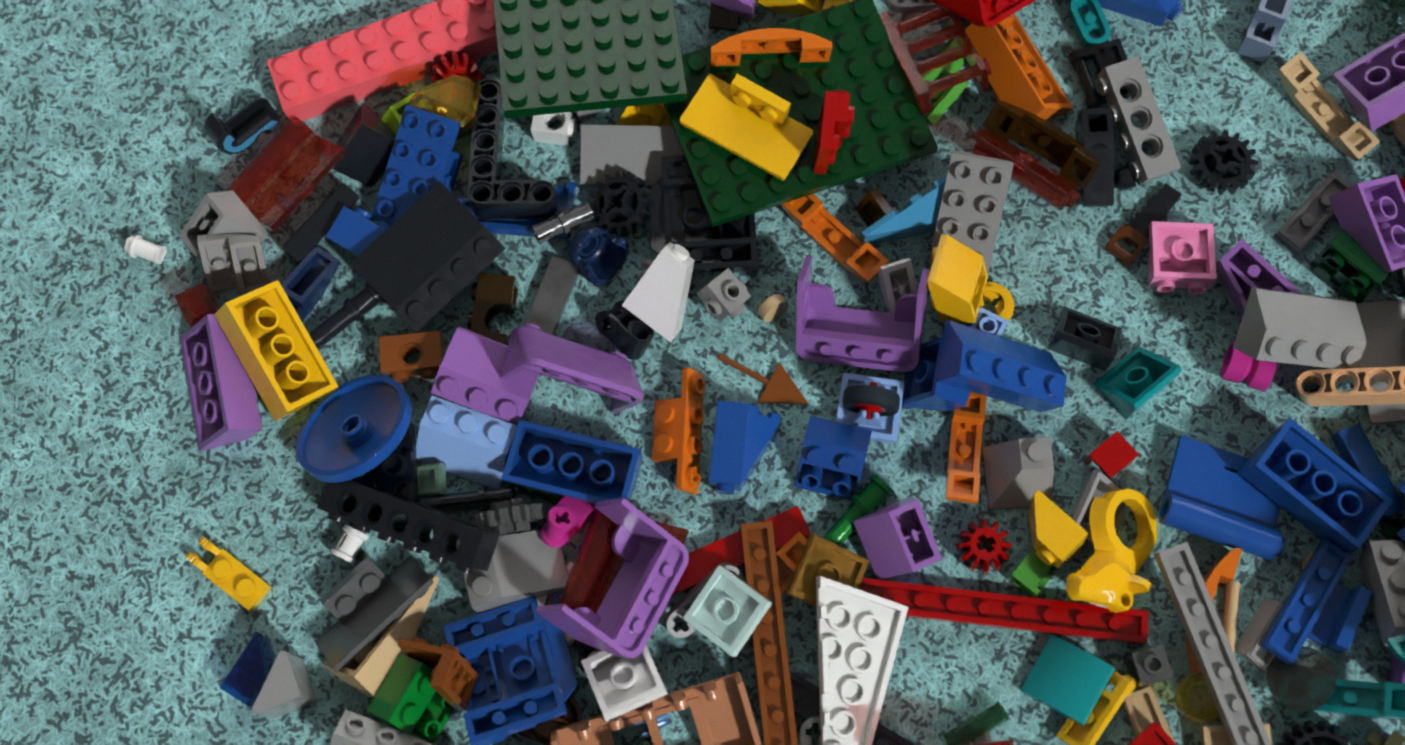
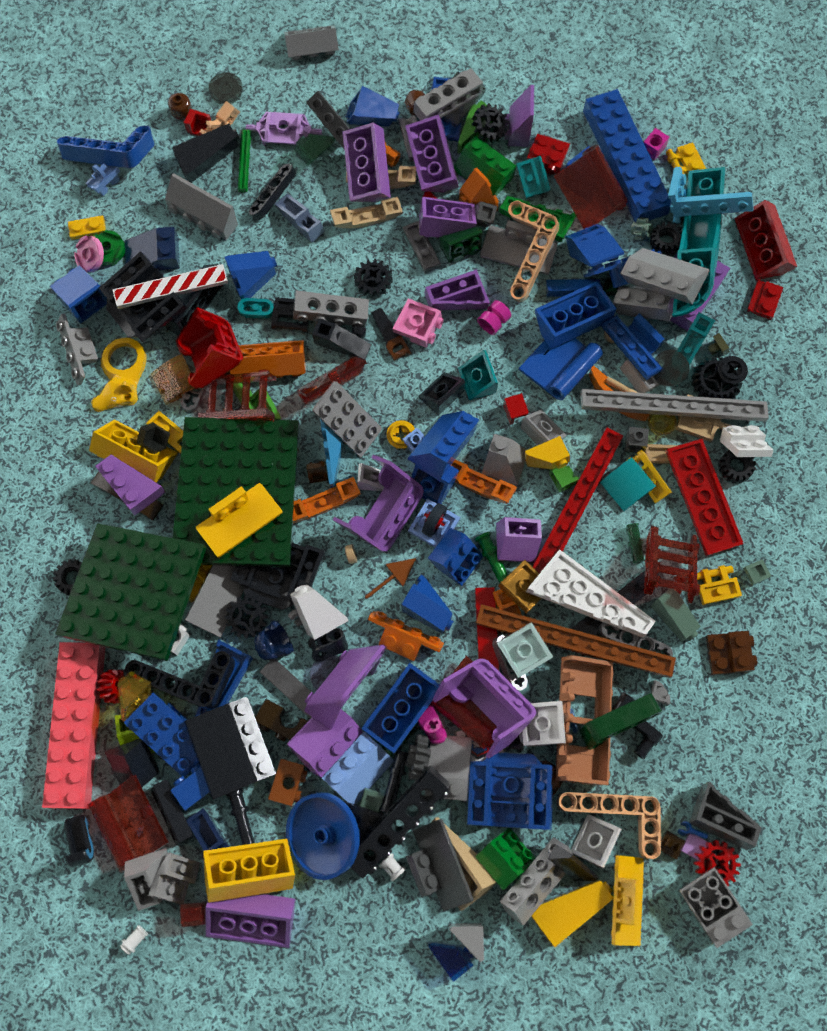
camera: 75 degrees left, 0 degrees up
(231, 575) = (380, 953): yellow hinge -> none
(451, 672) = (499, 825): dark orange bracket -> none
(562, 222) = (244, 655): dark grey pin -> none
(724, 296) = (332, 578): light grey brick -> none
(770, 40) = (203, 464): orange slope -> none
(833, 125) = (262, 469): red plate -> none
(956, 281) = (383, 444): yellow slope -> none
(982, 557) = (546, 499): red gear -> none
(1045, 140) = (320, 361): dark brown slope -> none
(1110, 572) = (583, 438): yellow animal -> none
(1301, 330) = (490, 281): light grey slope -> none

